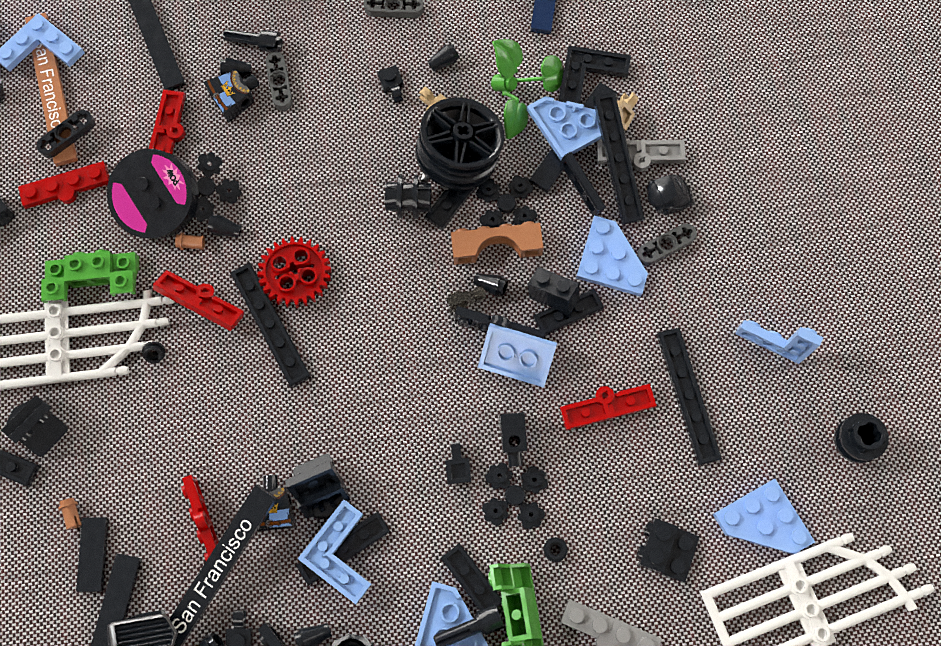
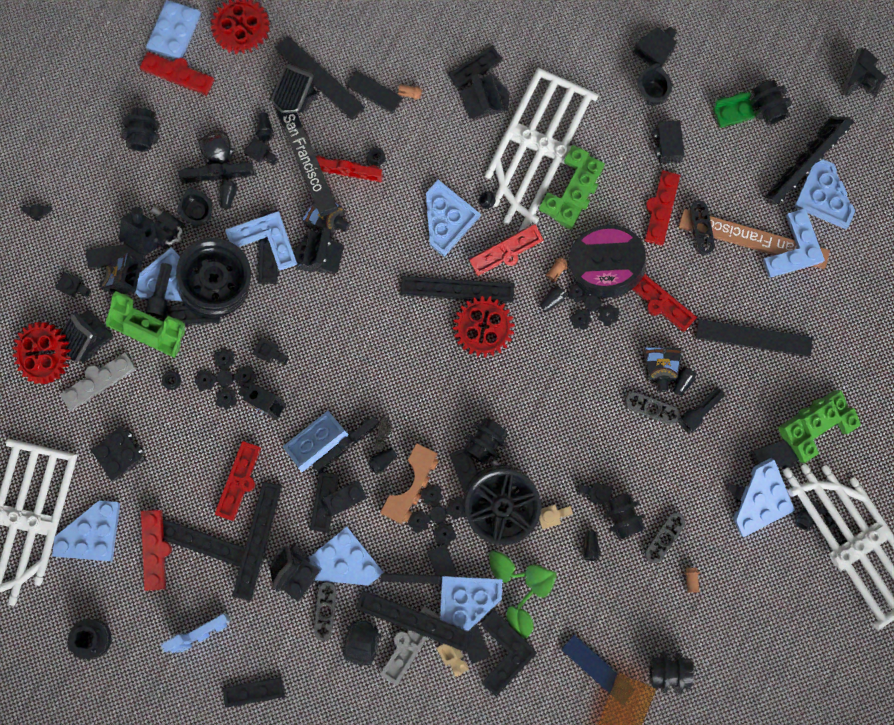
camera: 125 degrees right, 5 degrees up
(163, 500) = (373, 152): none -> black plate
(196, 380) = (447, 217): none -> light blue plate
(396, 549) = (225, 255): none -> black wheel
(398, 41) = (624, 516): none -> black piece
(650, 347) = (257, 541): none -> black tile
(655, 293) = (293, 572): none -> black piece
(732, 441) = (154, 550): none -> red hinge
(784, 260) = (253, 692): none -> black tile

